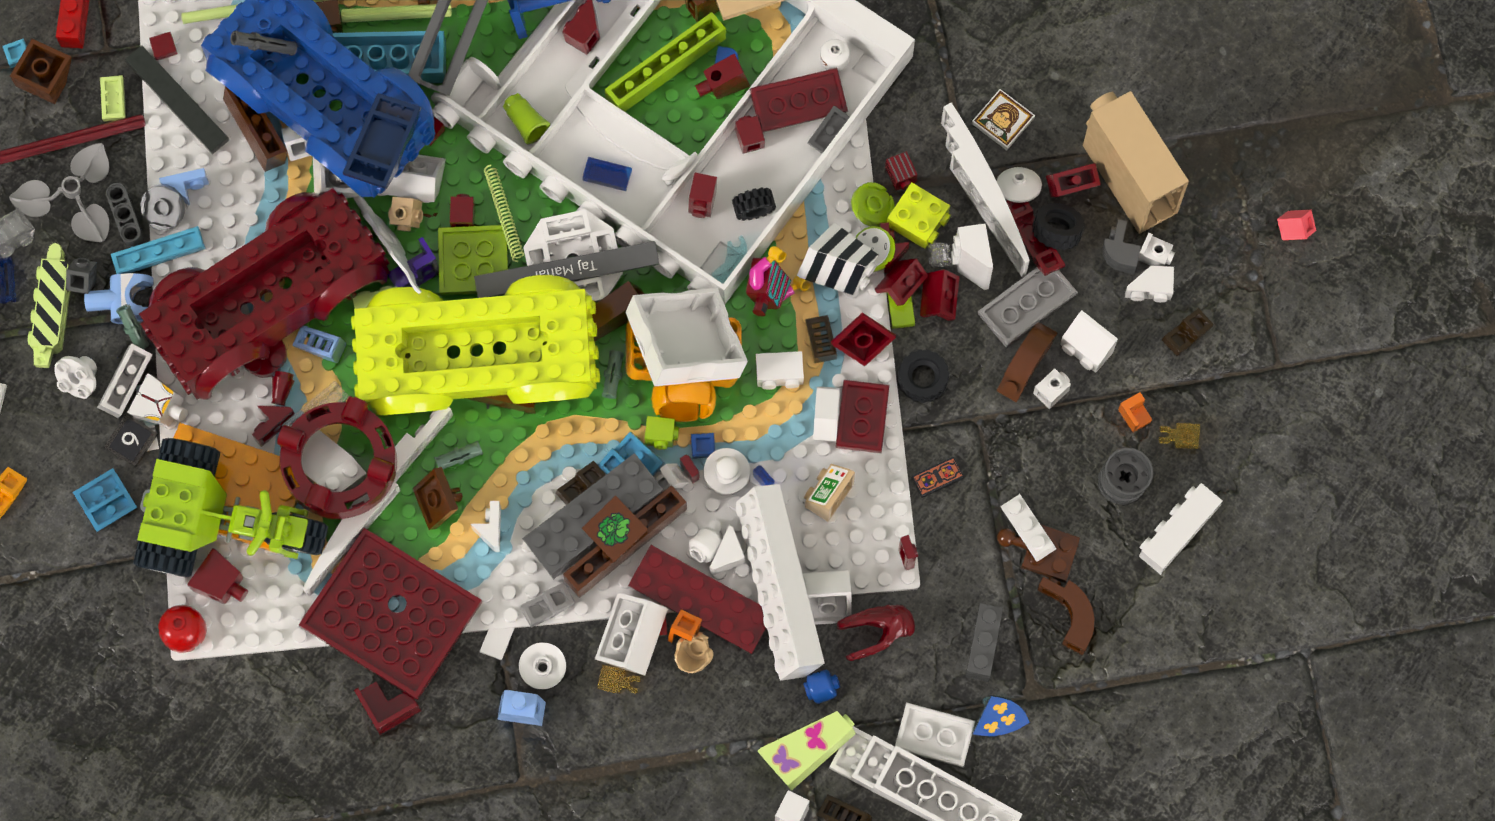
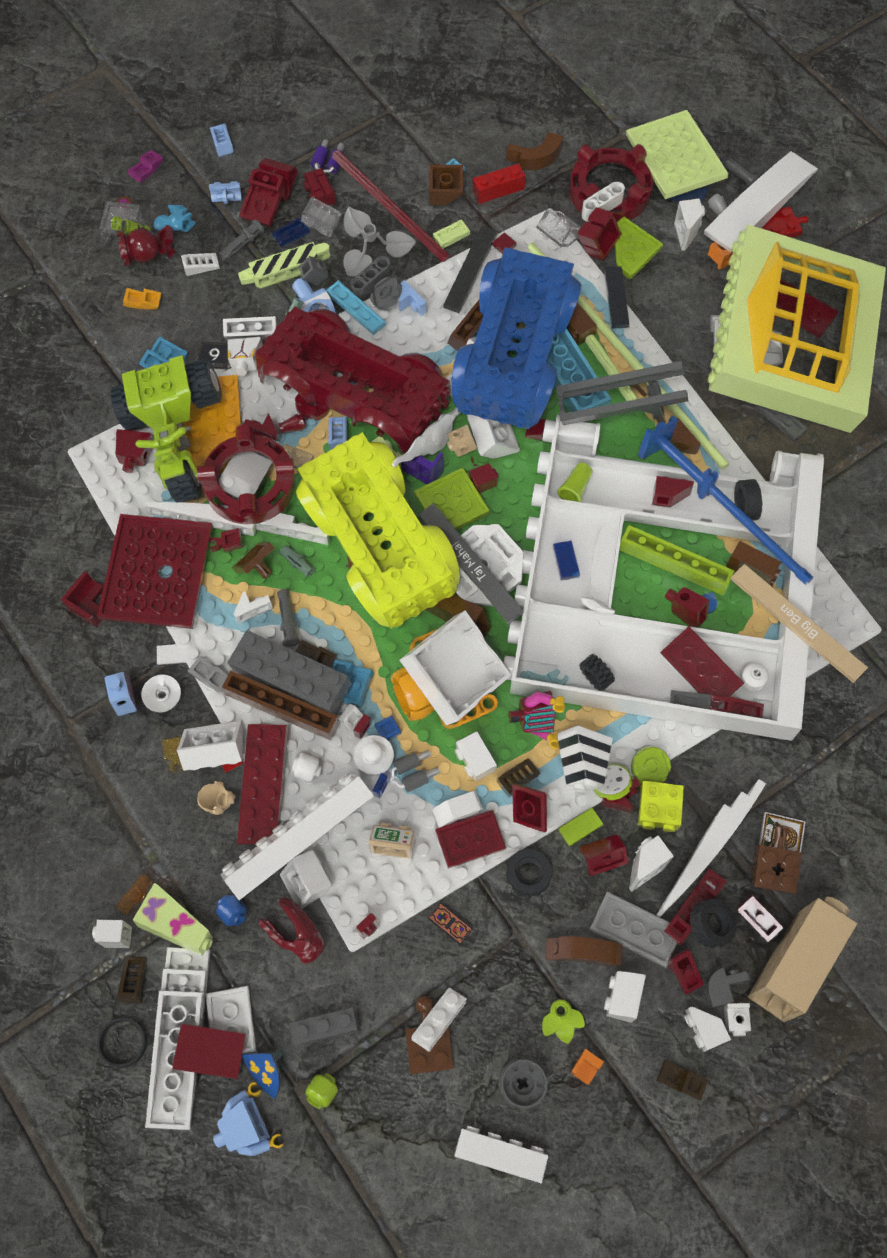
camera: 65 degrees right, 5 degrees down
(76, 375) = (242, 300): white plate -> none
(182, 628) = (88, 443): red cylinder -> none
(255, 42) = (526, 280): dark grey pin -> none
(382, 141) = (490, 383): dark blue slope -> none
(395, 517) = (229, 541): none -> dark red plate
(497, 206) = (499, 497): yellowish green piece -> none
(533, 496) = (288, 624): none -> dark grey pin
(610, 389) = (407, 638): sand green pin -> none
(614, 528) = (279, 689): reddish brown tile -> none
(661, 432) = (381, 692): lime brick -> none
(685, 626) = (233, 781): orange panel -> none
(702, 195) = (582, 631): dark red brick -> none
(728, 554) = (308, 786): white slope -> none
(749, 134) = (653, 644): dark red brick -> none
(757, 778) = (134, 894): none -> clear orange plate
(774, 440) = (416, 779): none -> dark grey piece
(859, 87) = (738, 706): none -> dark red hinge
(901, 171) = (691, 775): dark red brick -> none
(902, 280) = (599, 818): dark red panel -> none
(939, 254) = (636, 837): clear wheel -> none
(956, 762) = (208, 1051): none -> dark red tile
(1019, 184) = (727, 879): white dish -> none
(1024, 131) = (768, 857): none -> reddish brown brick
(1043, 671) = (321, 1091): none -> lime head
(1043, 758) = (243, 1127): none -> light blue torso
(1052, 388) = (572, 984): white brick -> none
(1079, 610) = (378, 1105): reddish brown arch -> none
(1086, 415) = (563, 1024): none -> lime plate
(1092, 275) = (686, 971): none -> dark red slope
(1184, 435) = (587, 1120): clear yellow plate -> none
(1296, 224) = (831, 1135): coral panel -> none

